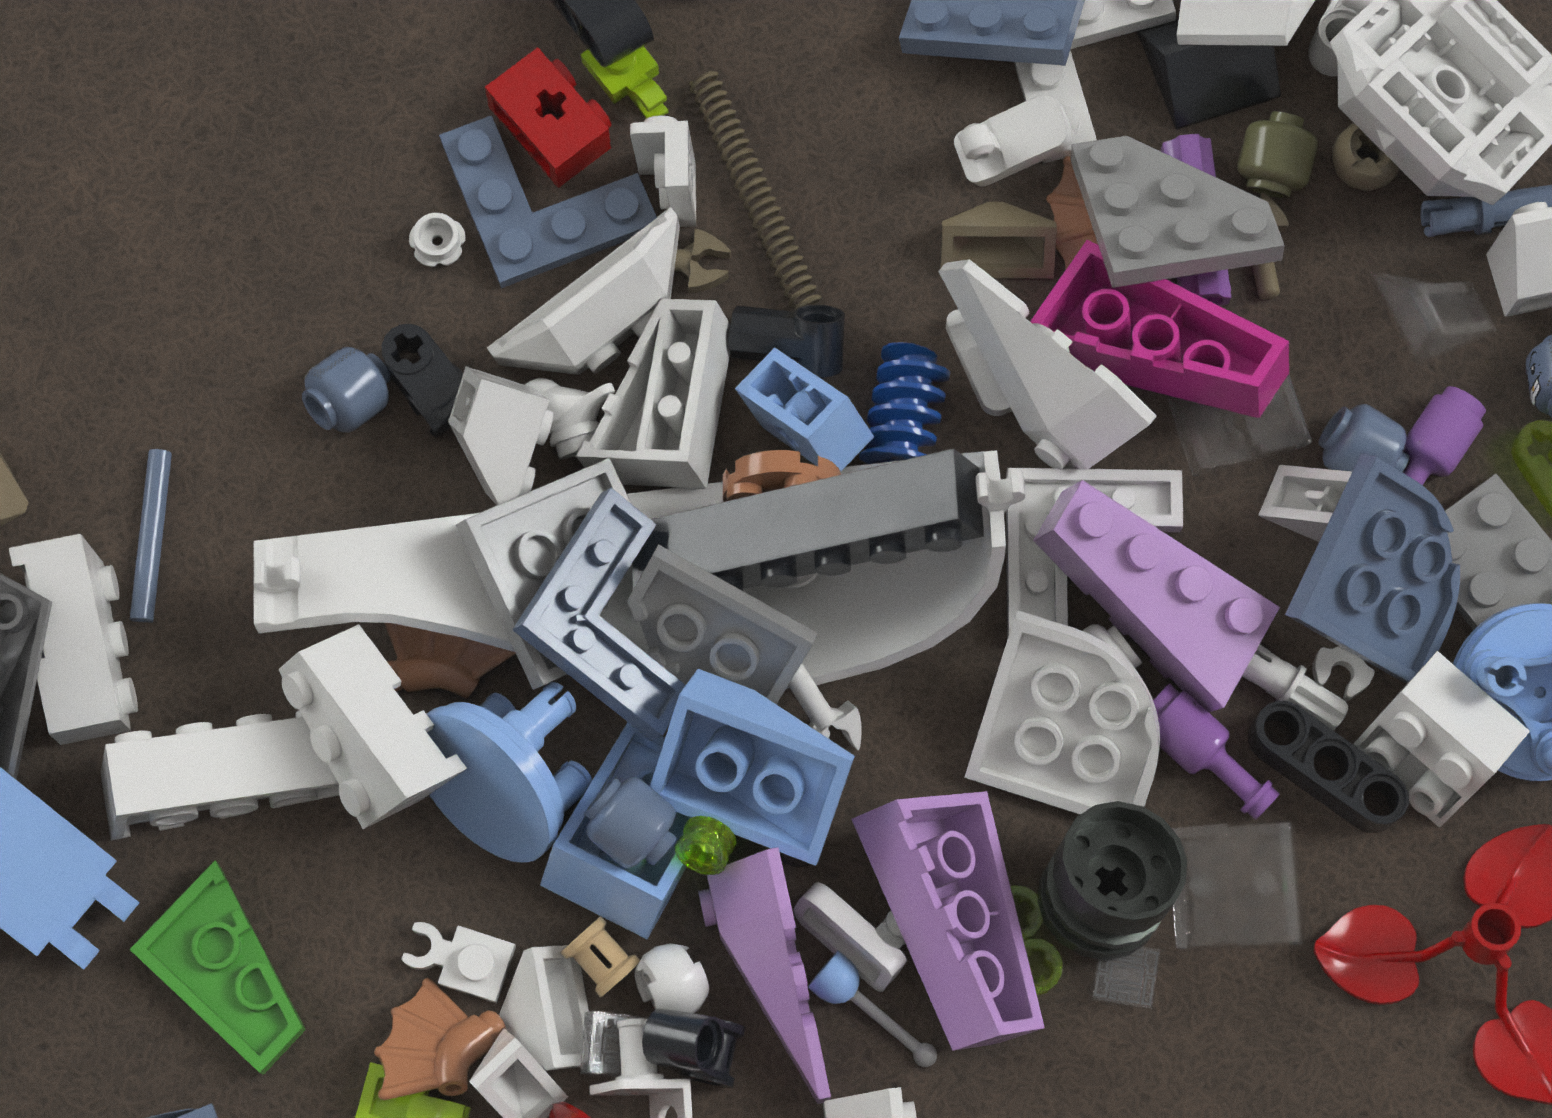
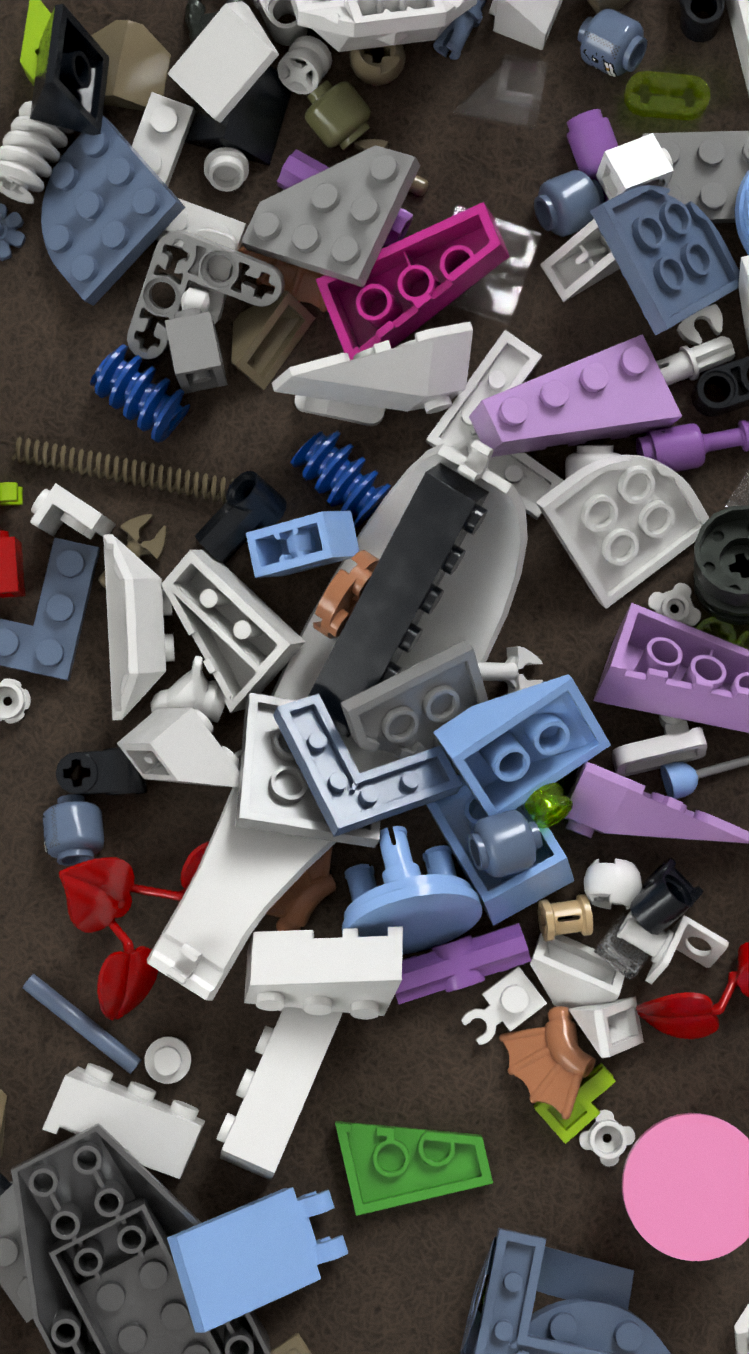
camera: 50 degrees left, 10 degrees up
(169, 646) = (167, 1060): none -> white plate
(284, 434) = (97, 895): none -> red plant
(474, 876) = (462, 963): none -> medium lavender piece
(842, 156) = (138, 394): none -> blue piece
(926, 175) = (195, 350): none -> light grey brick
(1008, 118) = (195, 270): none -> light grey beam
(1033, 848) = (678, 596): none -> white plate
(1139, 86) = (226, 168): none -> white plate
(1303, 89) = (302, 76): none -> white wheel
(1453, 478) = (634, 165): none -> white brick

